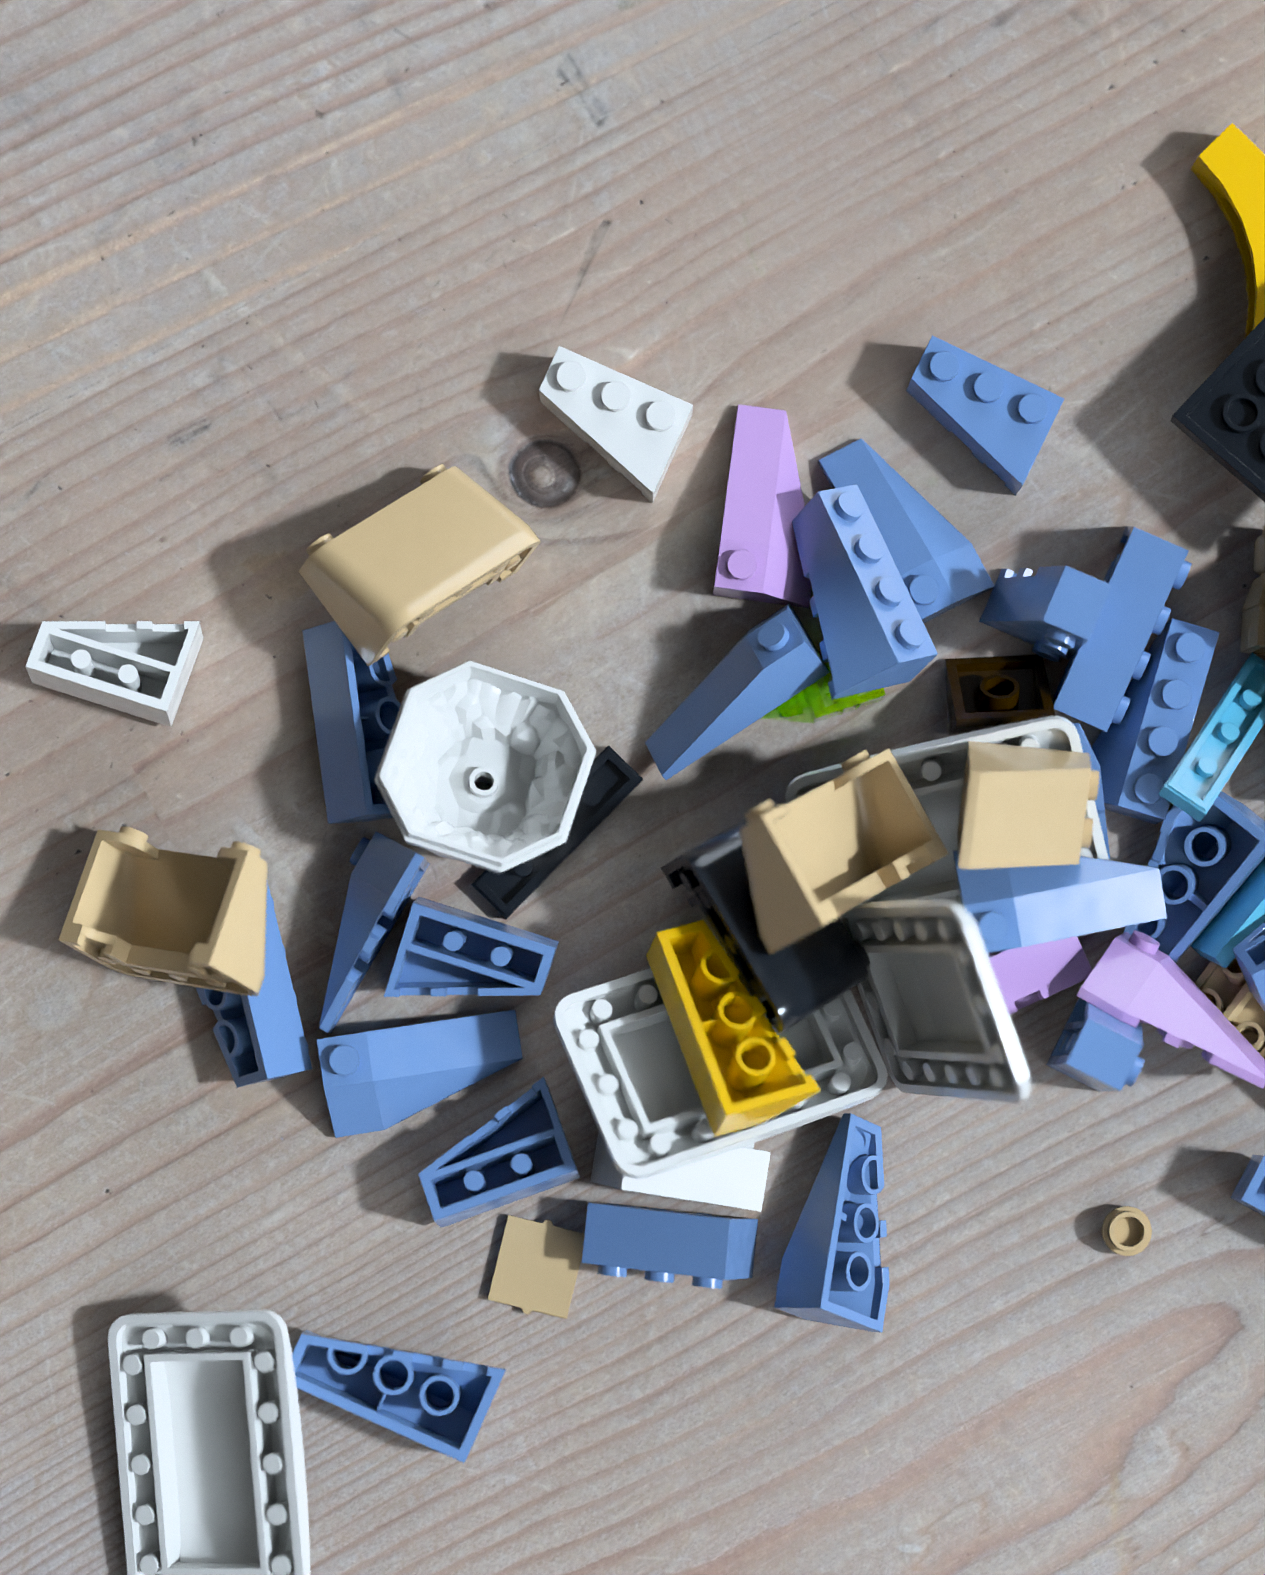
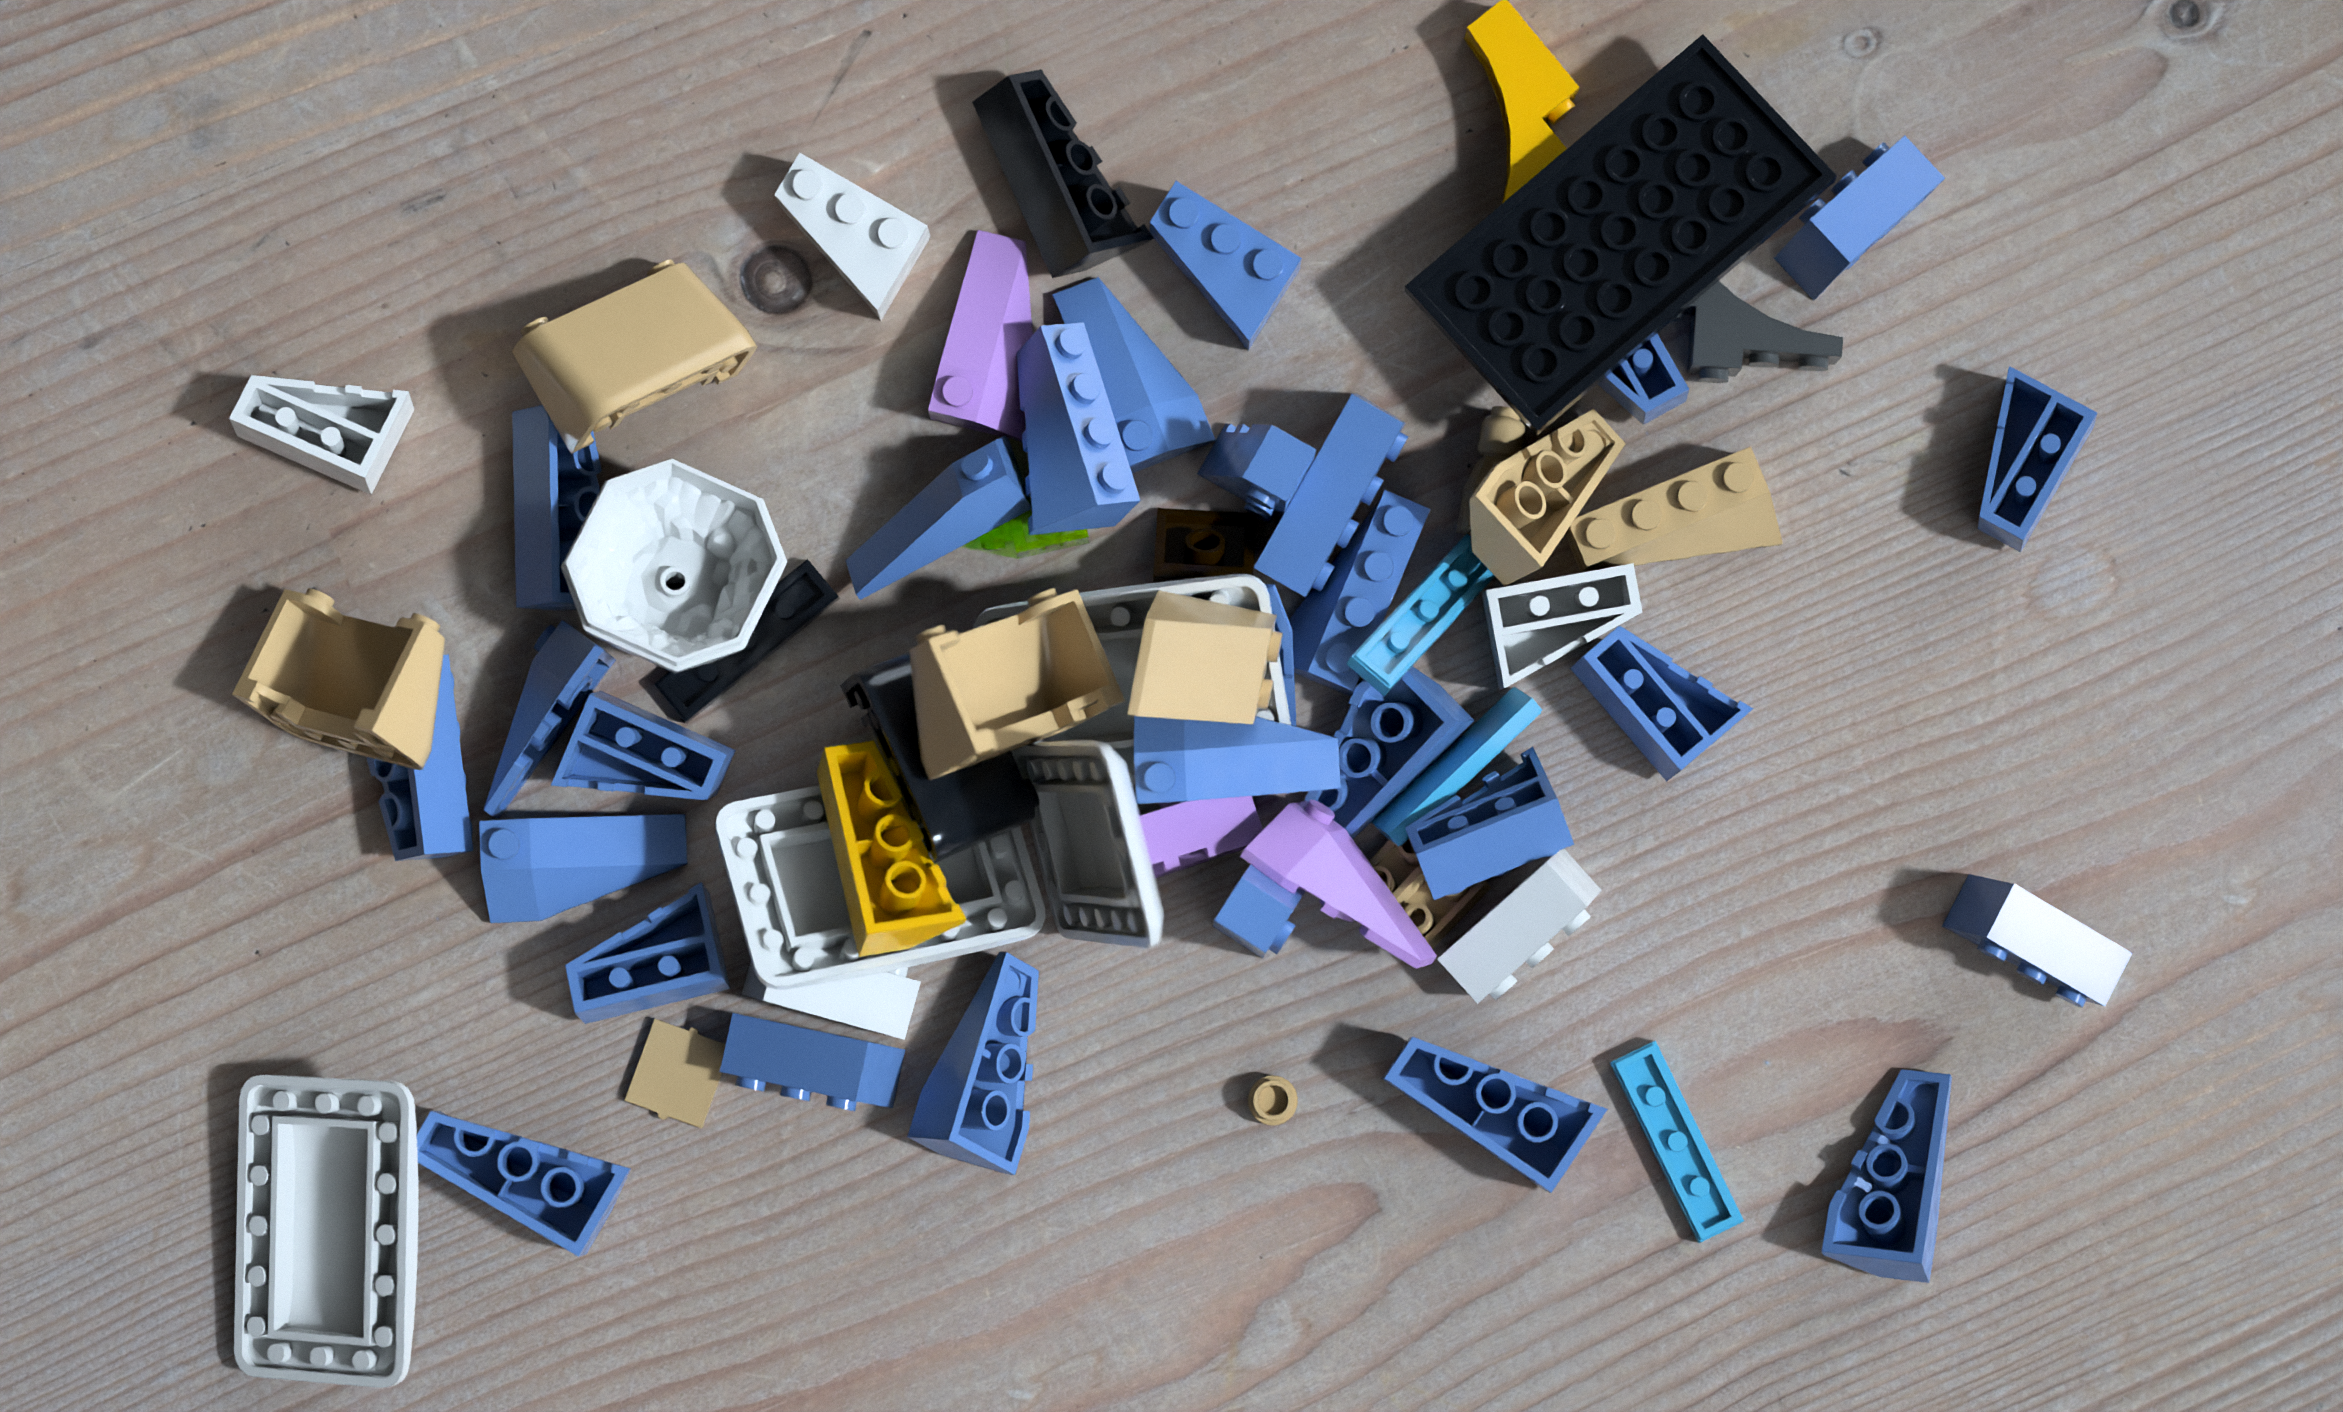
camera: 10 degrees right, 0 degrees up
(810, 343) = (1056, 176): none -> black wedge

